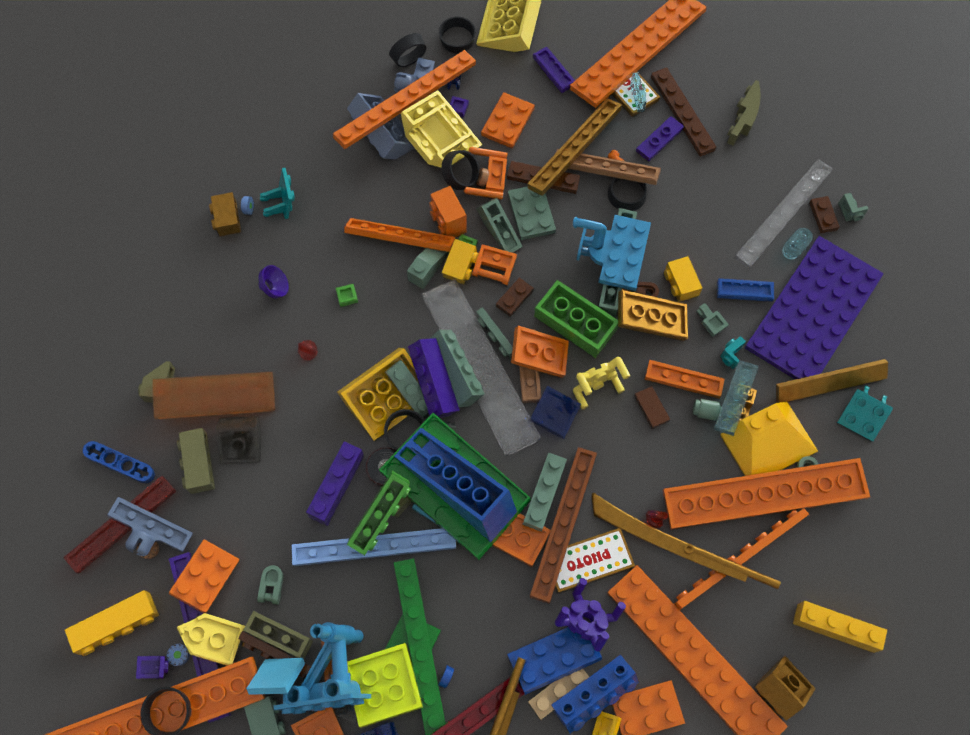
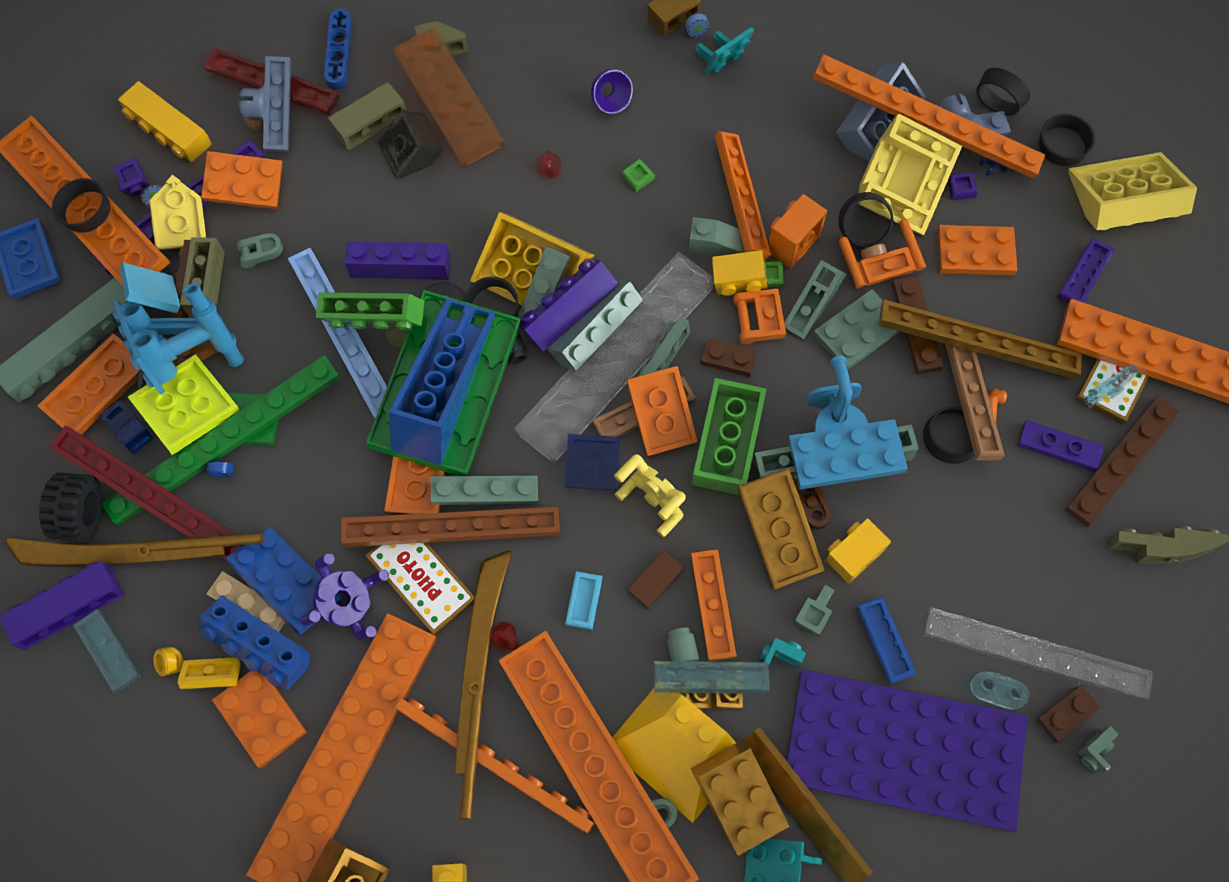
camera: 70 degrees right, 0 degrees up
(648, 458) = (584, 600): none -> medium azure tile
(818, 413) = (739, 797): none -> pearl gold brick

